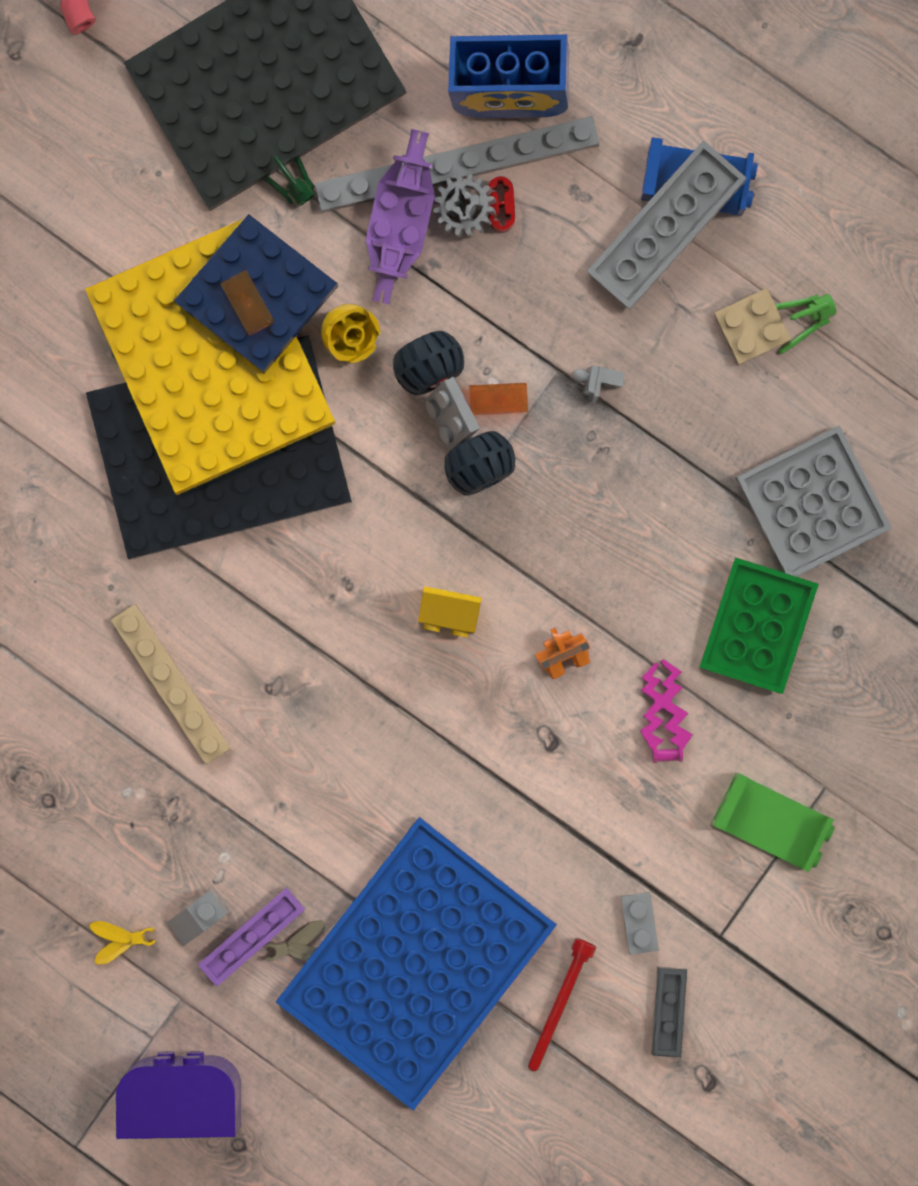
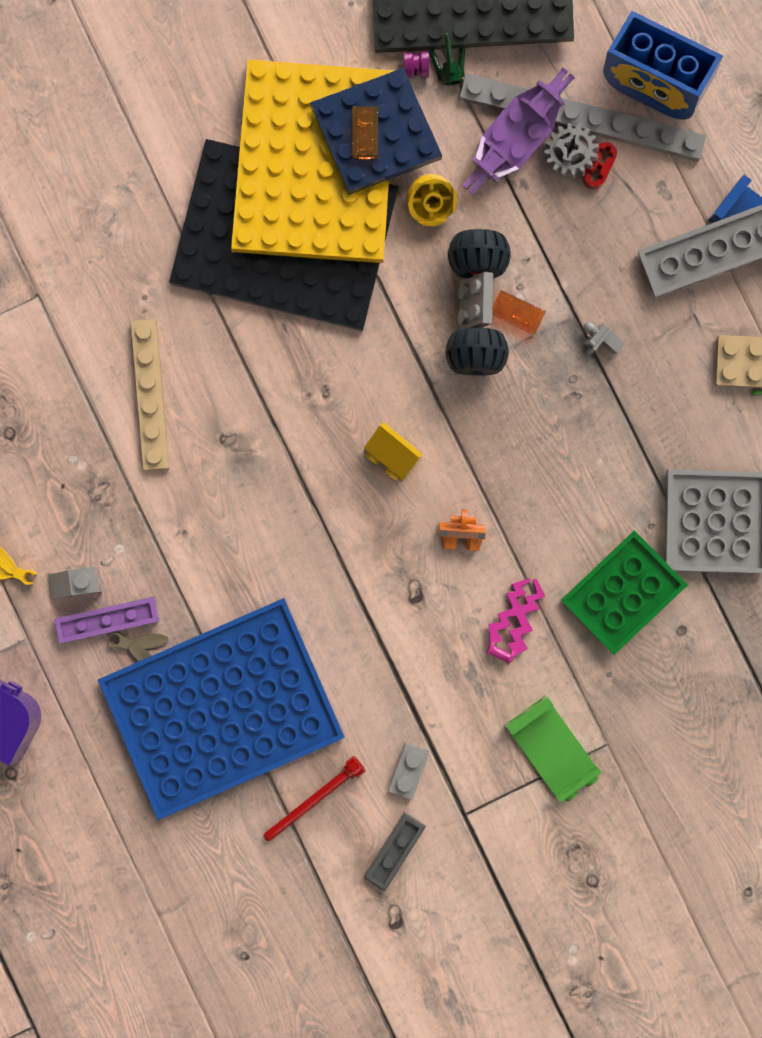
camera: 25 degrees right, 0 degrees up
(260, 201) = (416, 64): none -> magenta wheel

